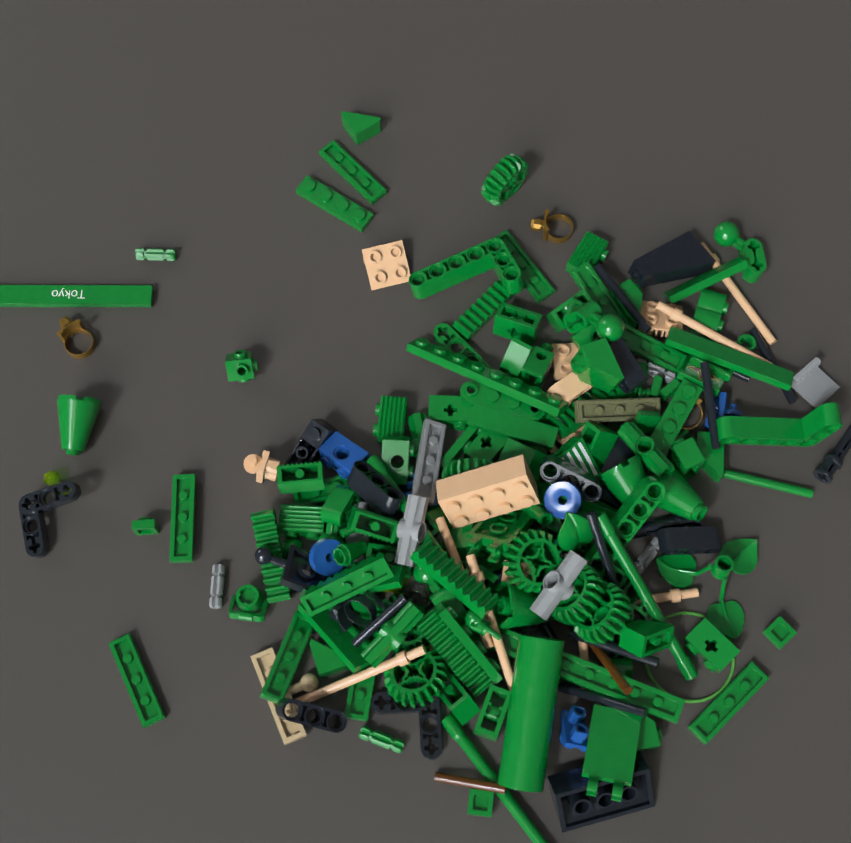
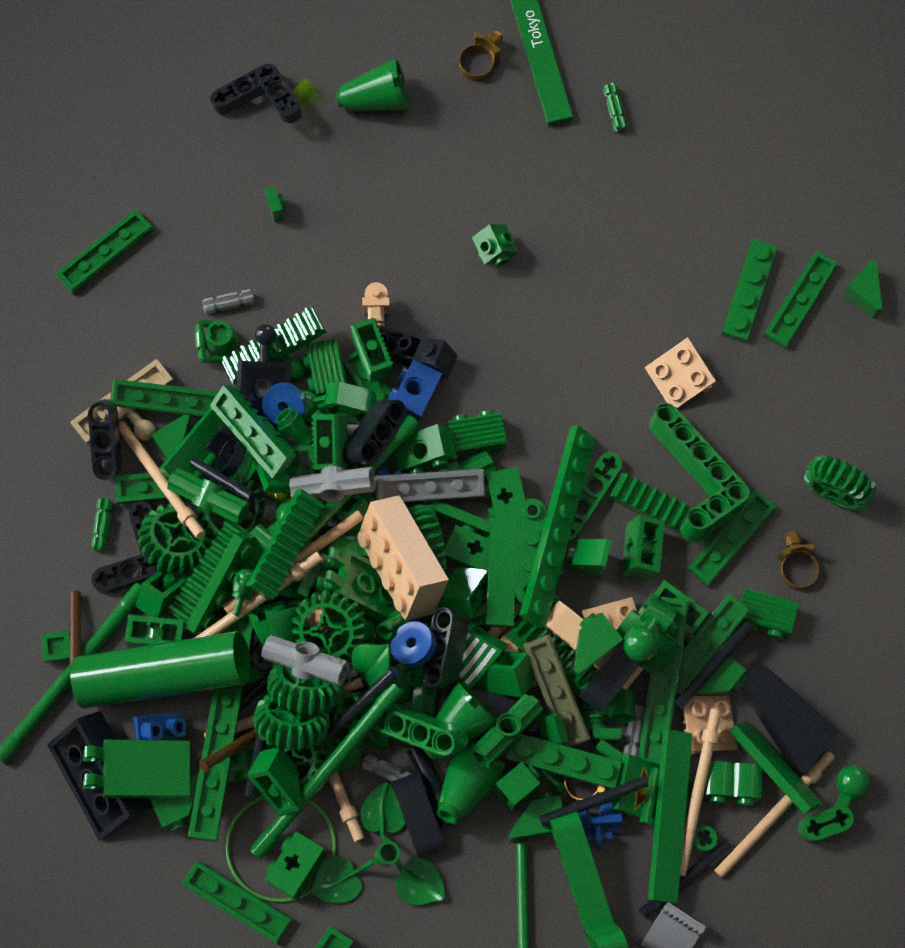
camera: 70 degrees right, 5 degrees up
(183, 518) = (296, 240): green plate -> none
(538, 365) = (580, 581): green torso -> none
(603, 699) = (193, 769): black bar -> none

